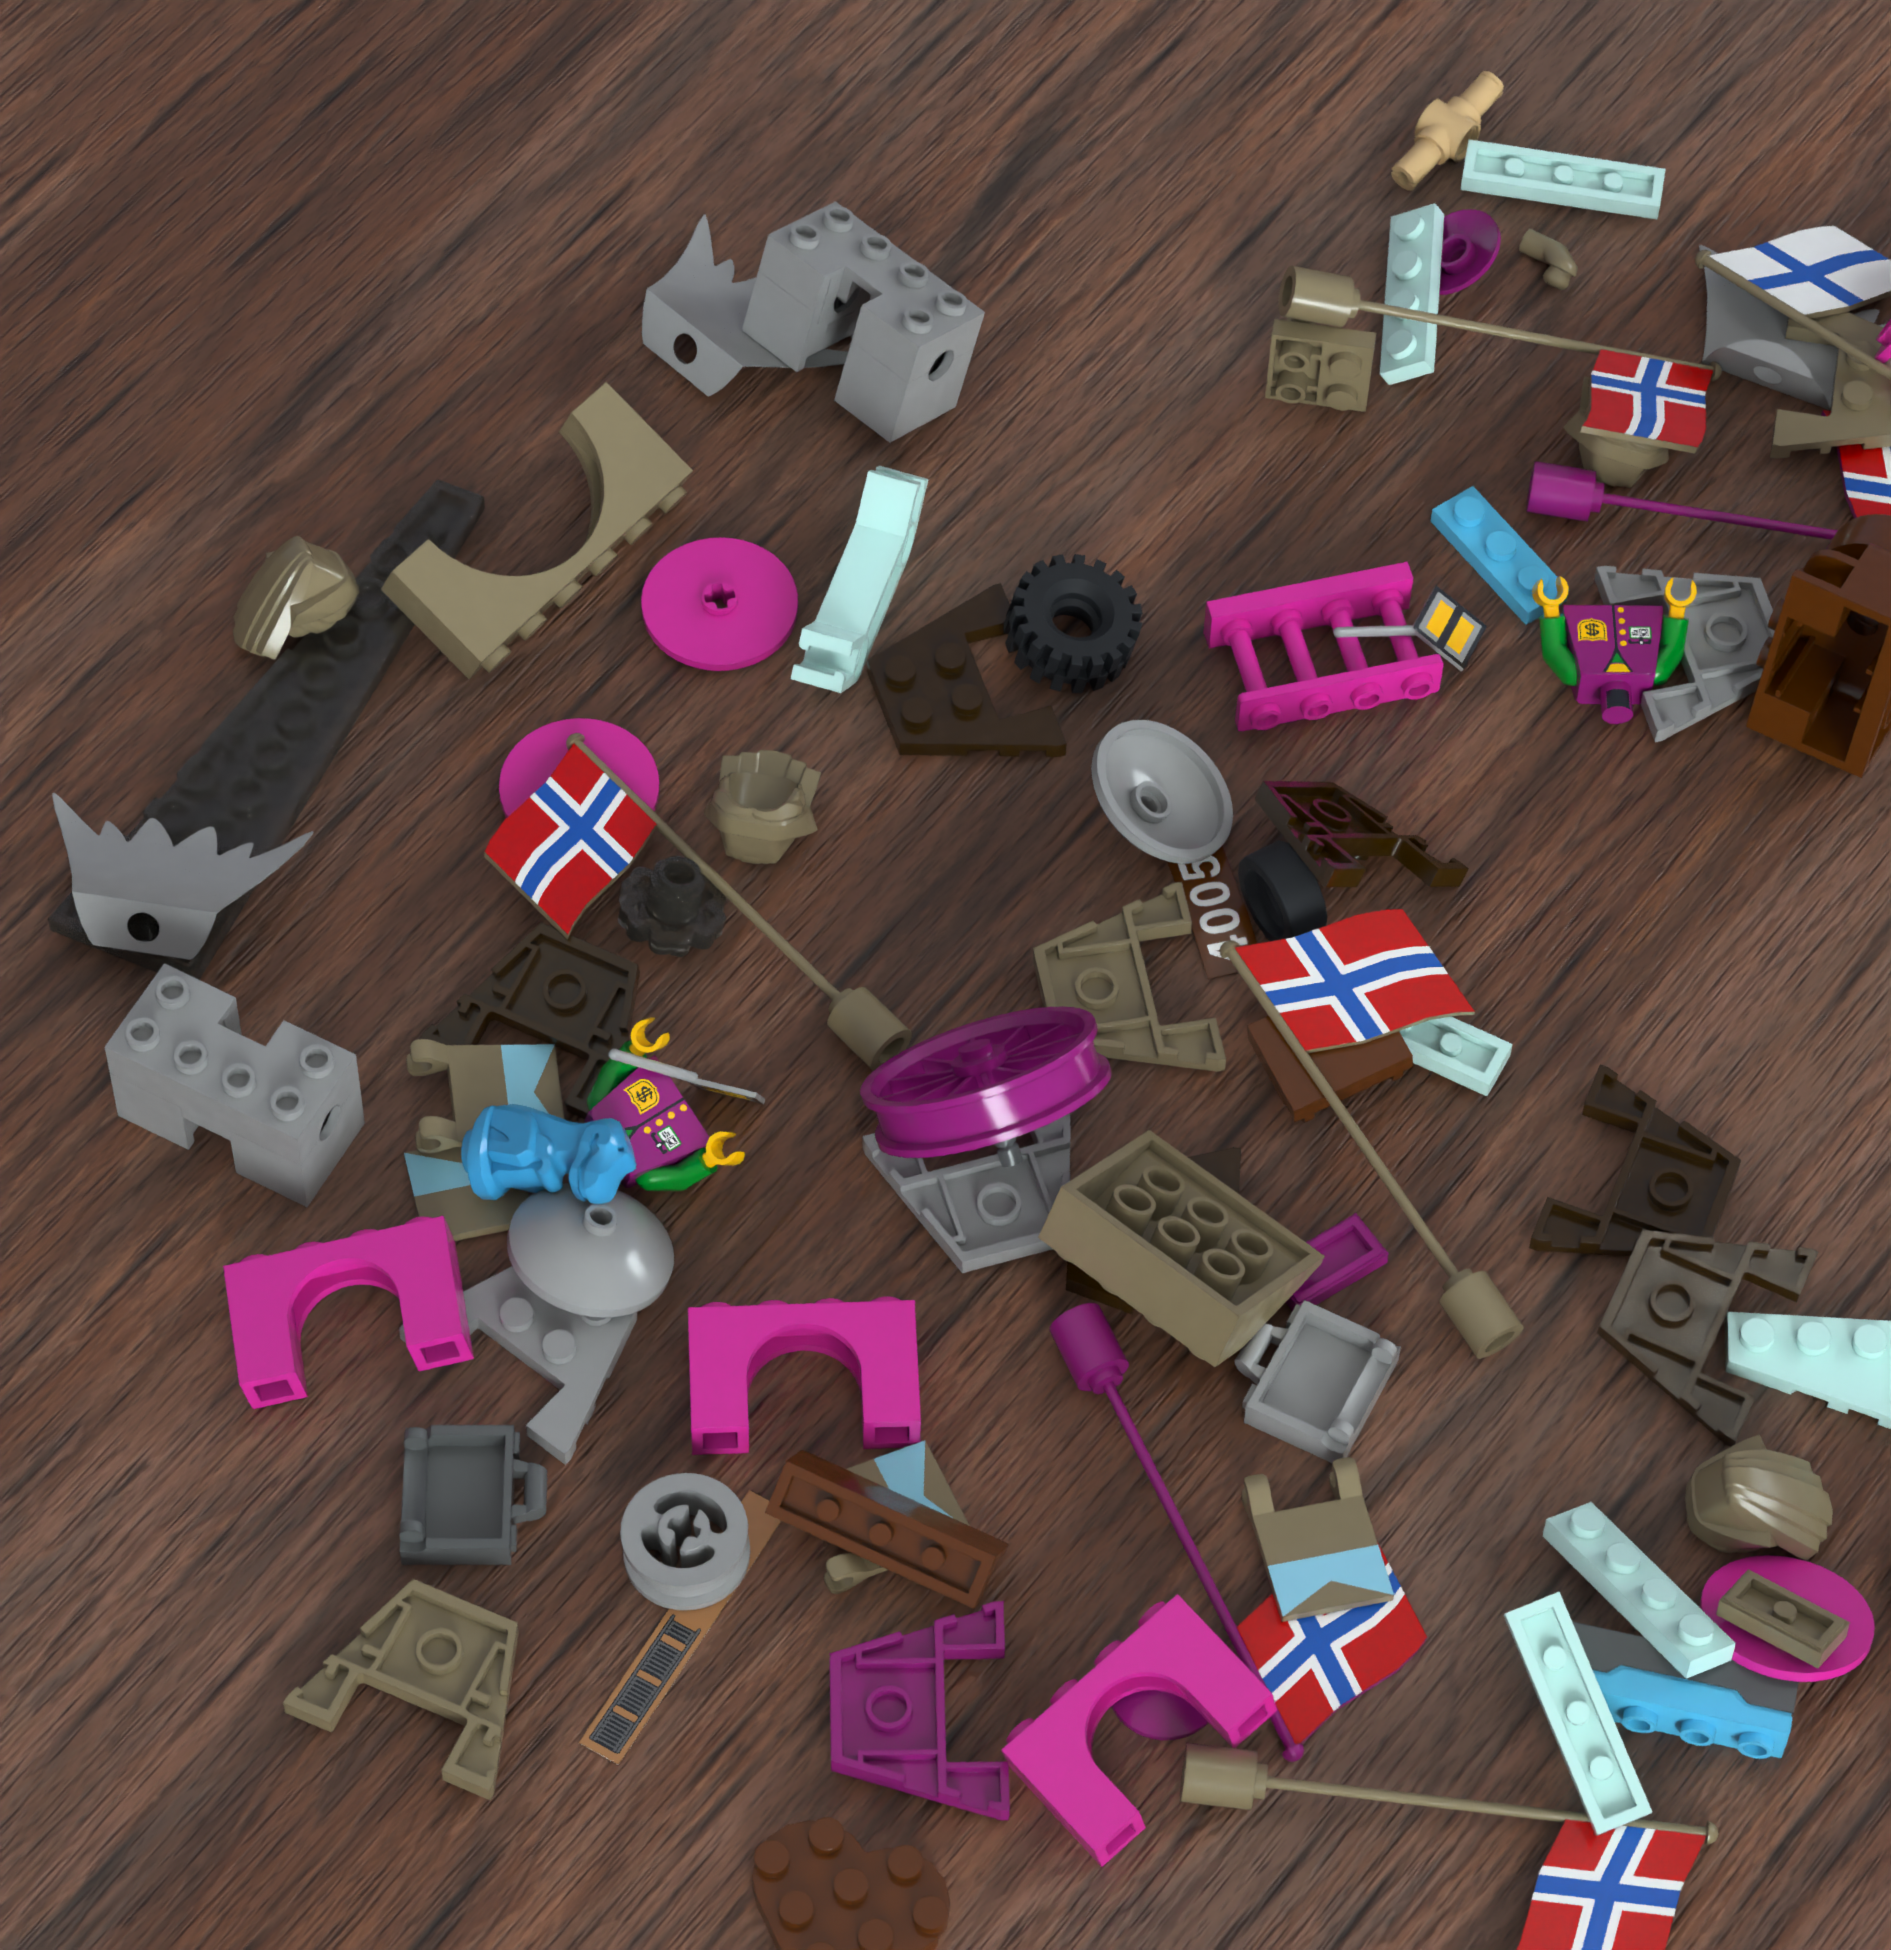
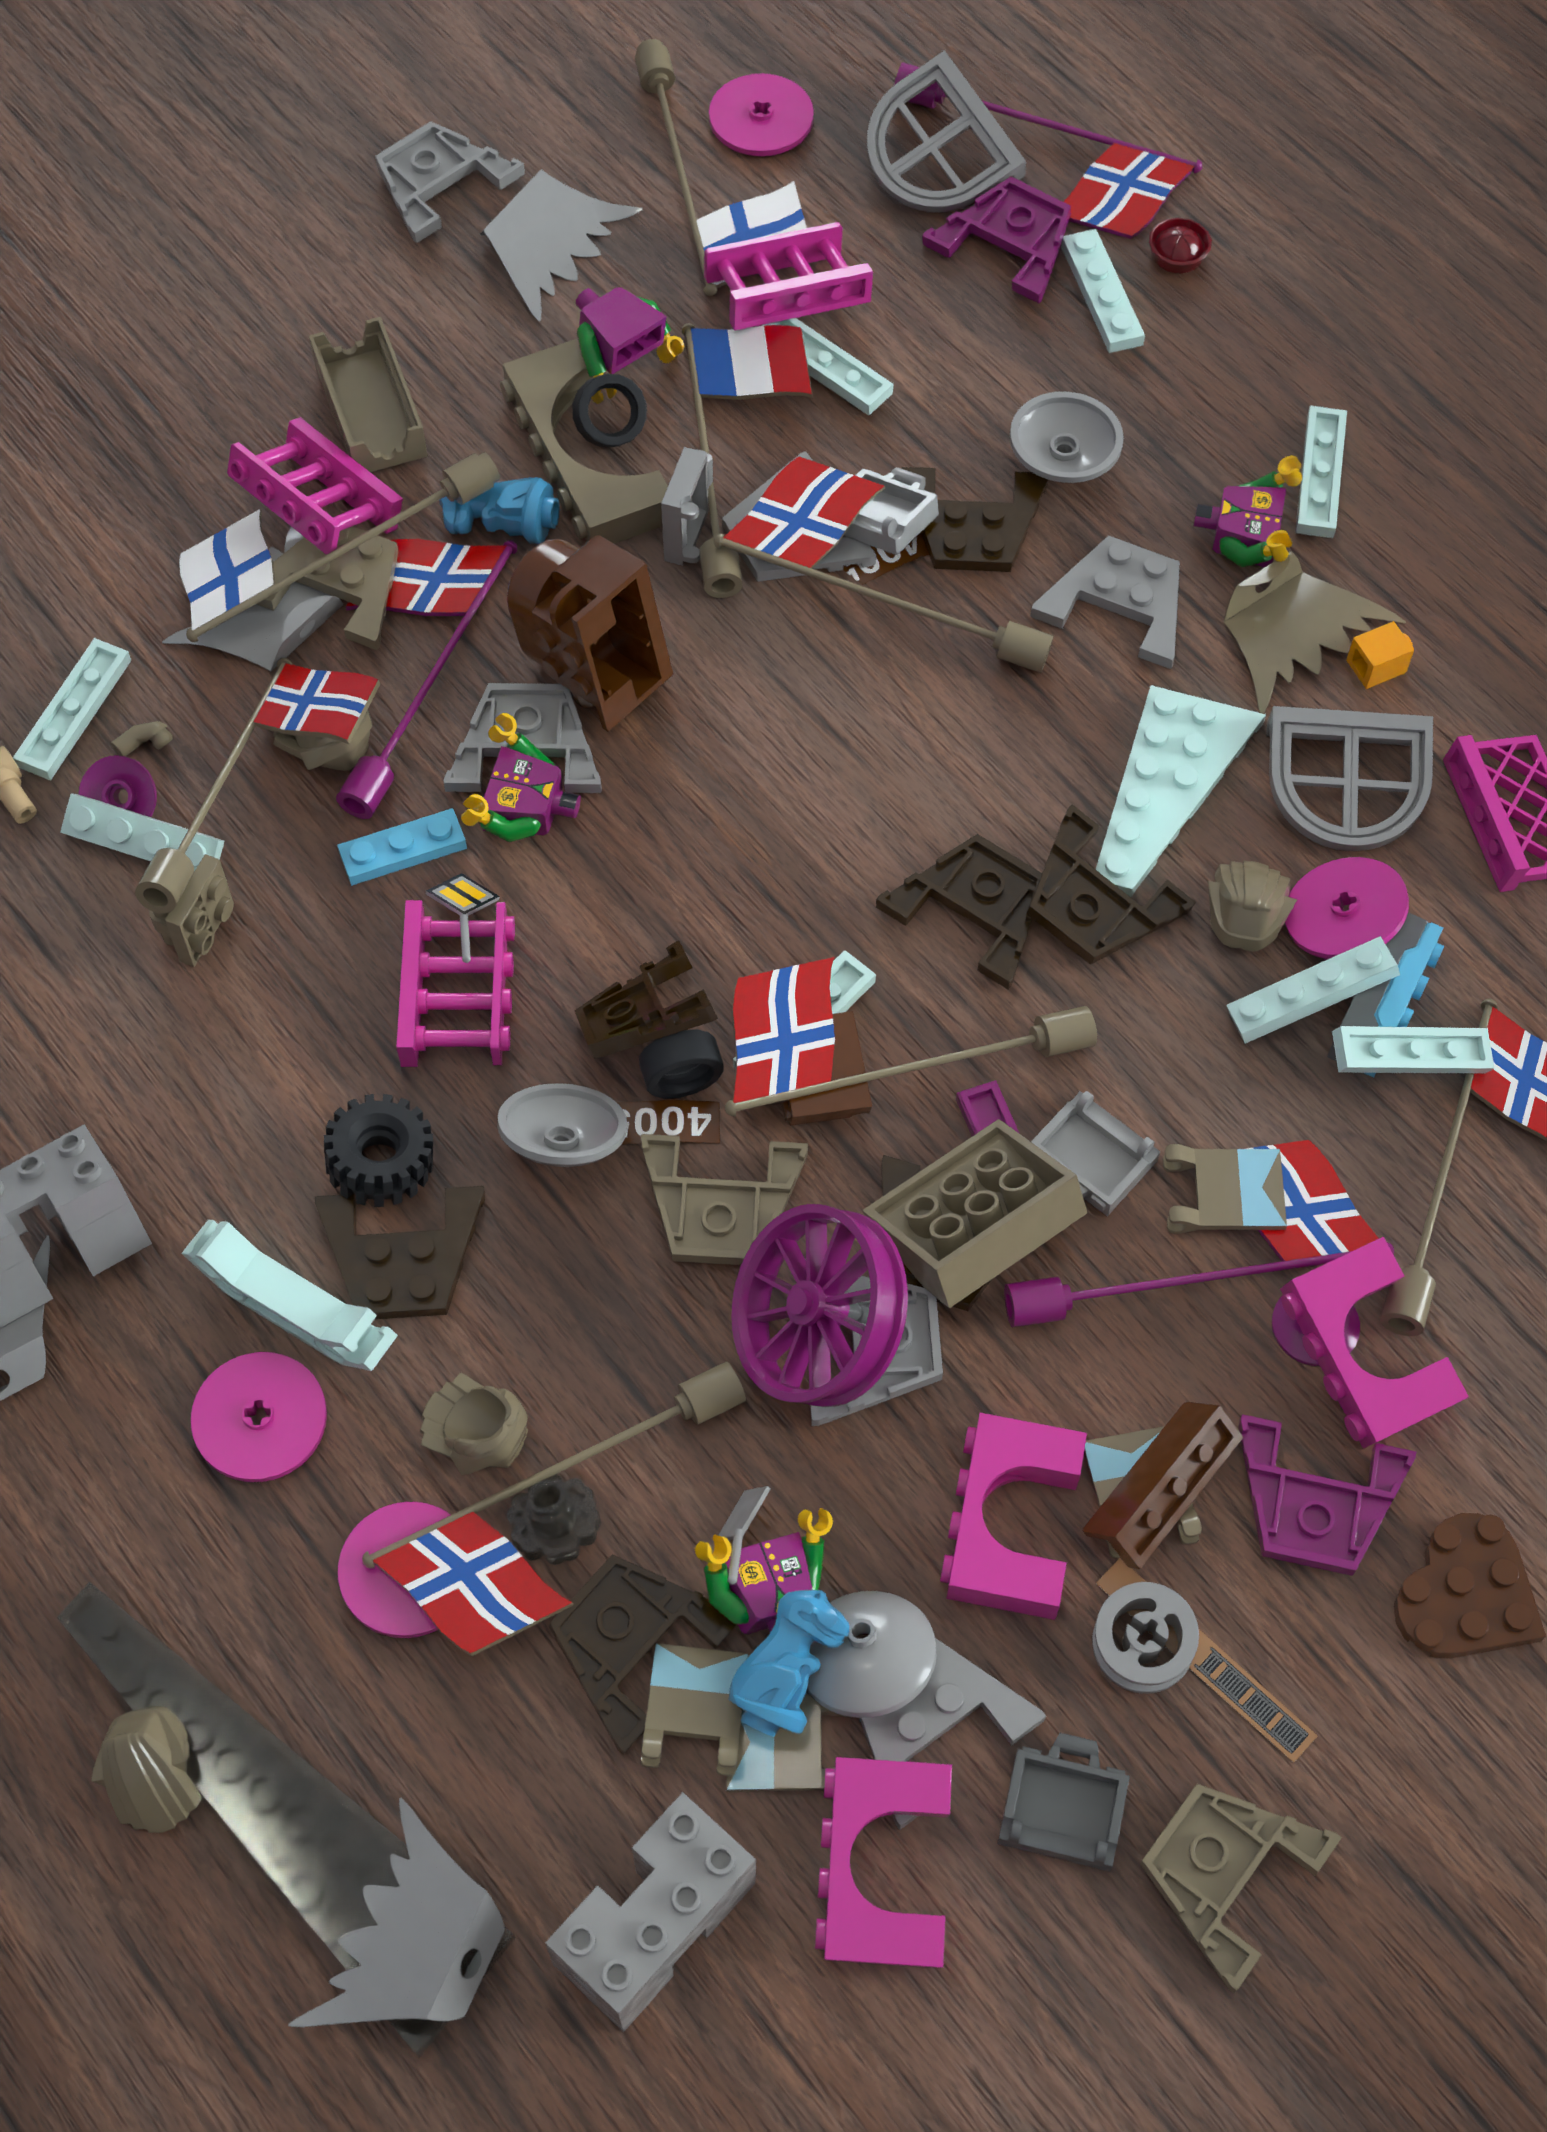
camera: 75 degrees left, 5 degrees up
(479, 612) = (123, 1458): dark tan arch -> none
(1783, 1618) = (1365, 903): dark tan plate -> none

